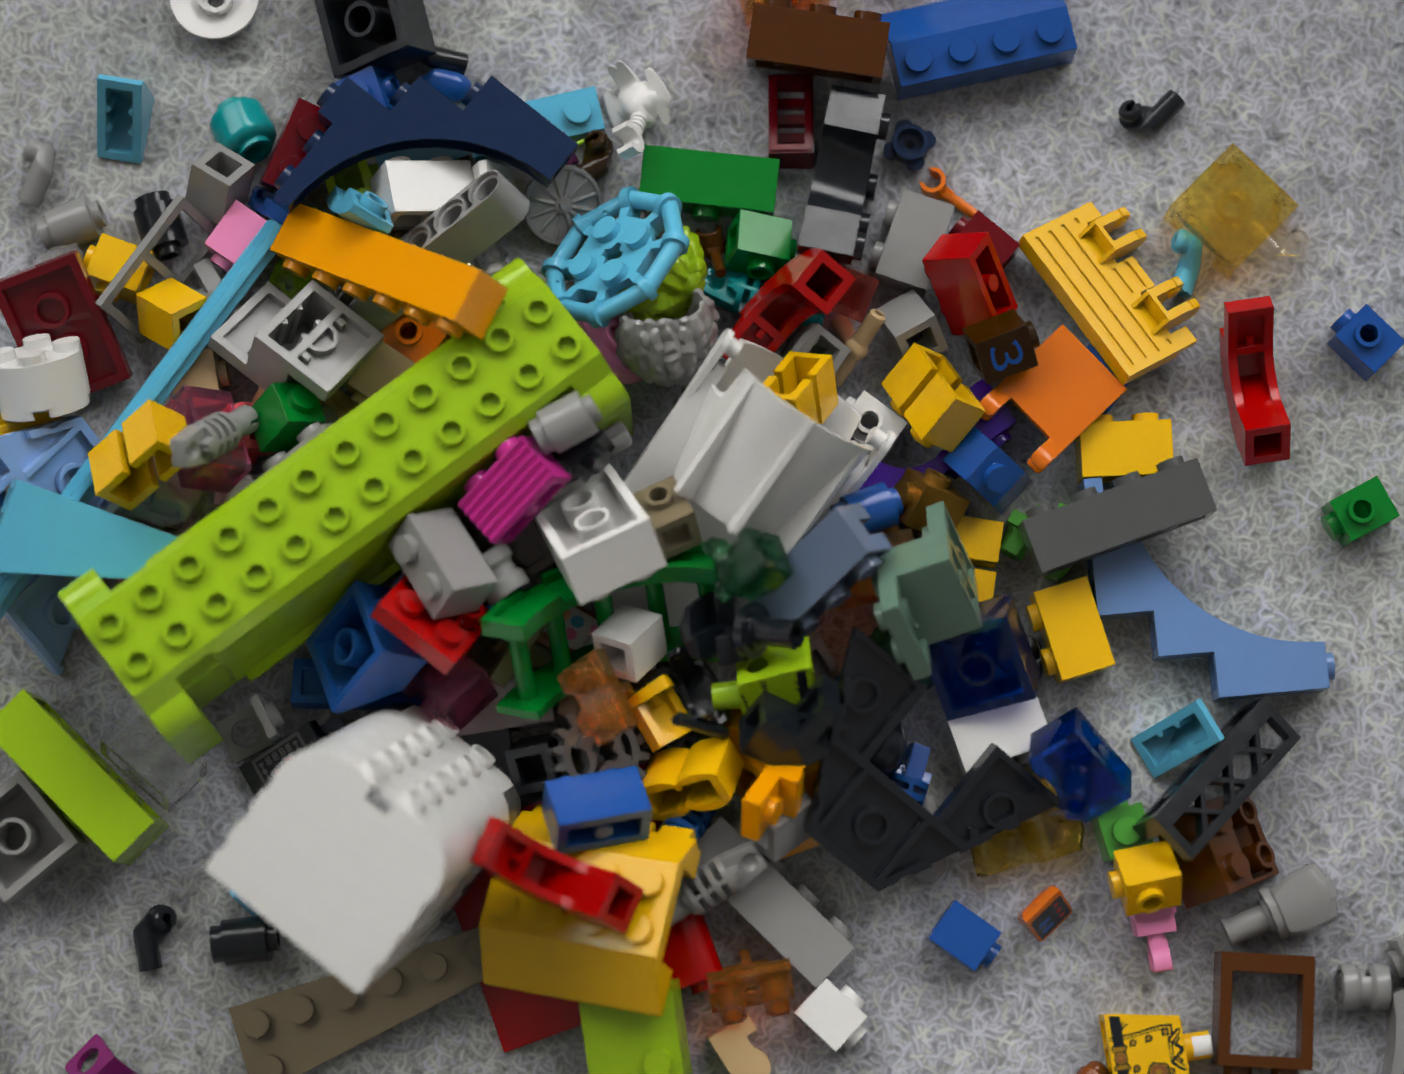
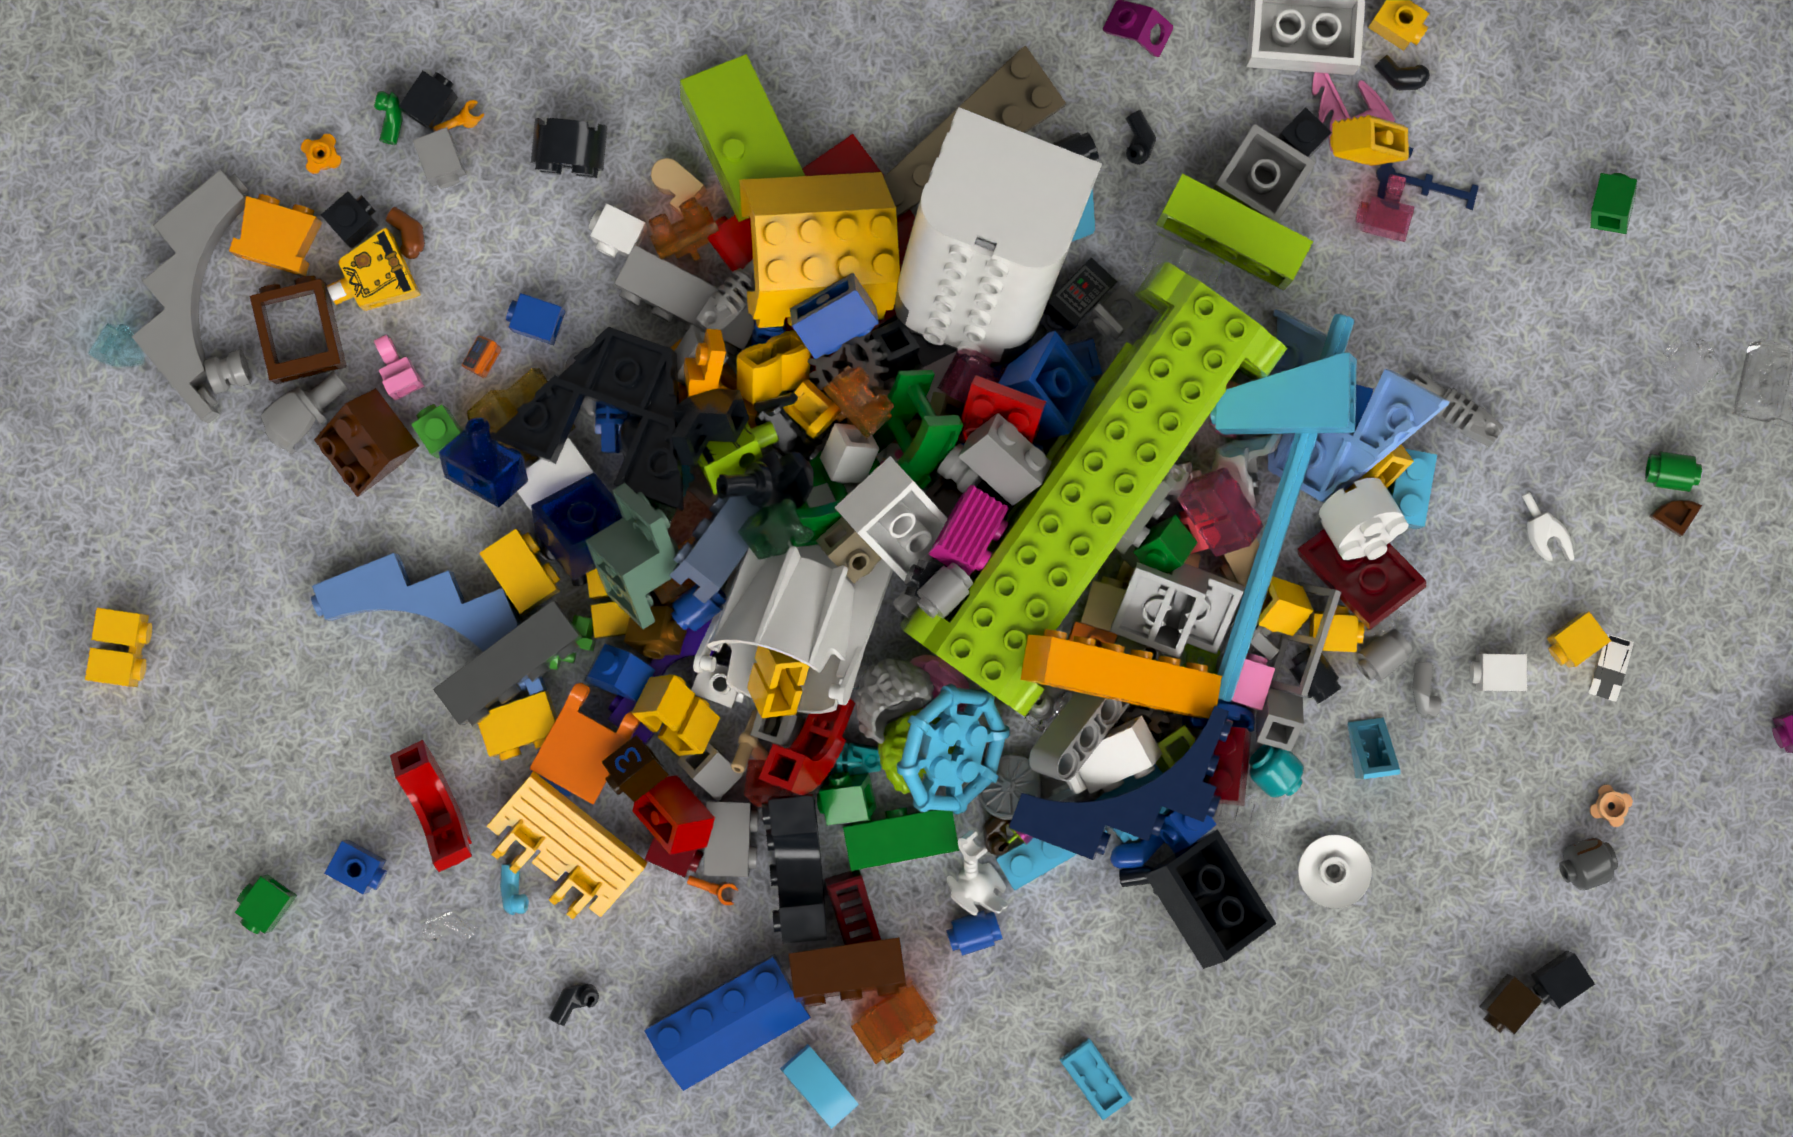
camera: 160 degrees right, 5 degrees up
(124, 460) = (1272, 473): yellow piece -> none
(212, 436) = (1211, 505): light grey hinge -> none
(361, 209) = (1159, 721): medium azure slope -> none
(556, 878) = (844, 249): red arch -> none
(657, 49) = (974, 932): none -> blue brick
(713, 247) = (883, 789): reddish brown hand -> none
(909, 132) = (746, 925): dark blue plate -> none
(1146, 878) = (411, 397): yellow brick -> none
(1177, 738) = (417, 515): medium azure slope -> none
(1202, 771) = (389, 494): black fence -> none
(1231, 209) = (487, 939): clear yellow panel -> none
(1358, 512) = (326, 731): green brick -> none

